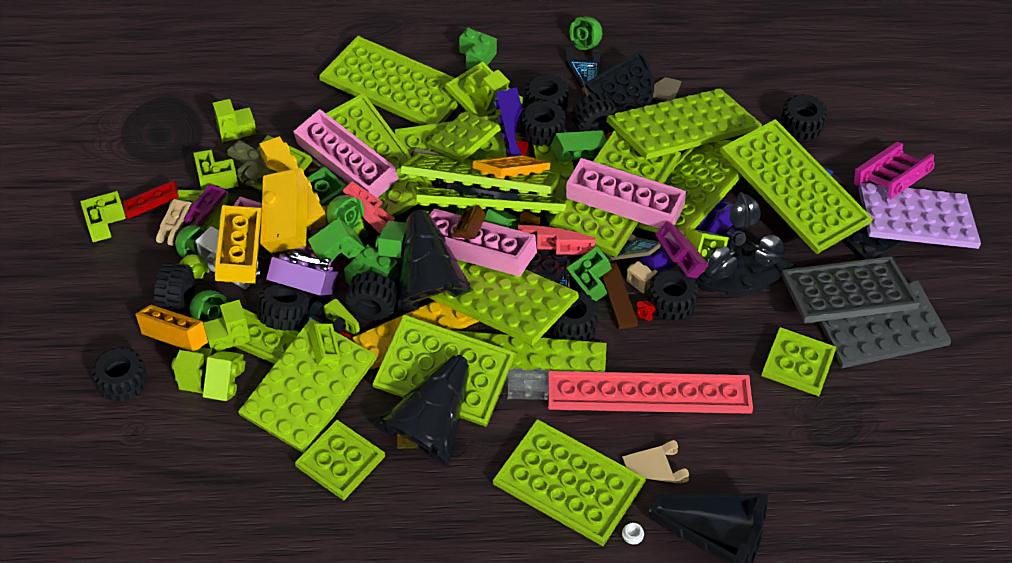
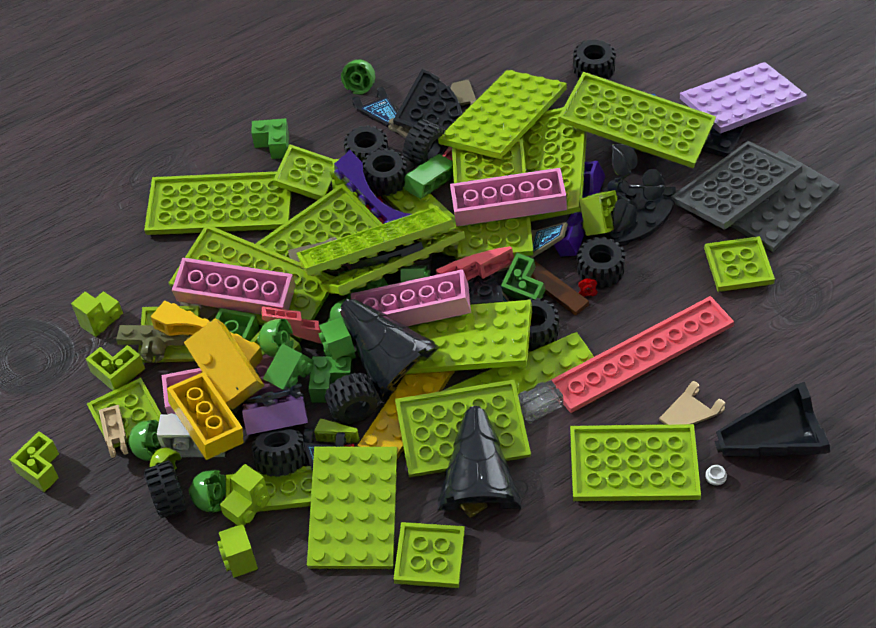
camera: 25 degrees left, 0 degrees up
(117, 361) = (176, 608): black tyre -> none
(150, 199) = (74, 422): red plate -> none
(172, 328) = (192, 525): light orange brick -> none
(205, 205) = (132, 399): magenta hinge -> none
(221, 375) = (269, 539): lime brick -> none
(324, 343) = (345, 462): lime slope -> none
(463, 136) = (328, 217): lime plate -> none
(469, 223) = (396, 289): reddish brown slope -> none
(484, 87) = (313, 167): lime brick -> none
(511, 166) = (397, 221): light orange plate -> none
(529, 219) = (439, 261): reddish brown plate -> none
(640, 276) = (562, 261): tan brick -> none
(681, 250) = (587, 220): magenta slope -> none
(889, 158) = (686, 63): dark pink fence -> none

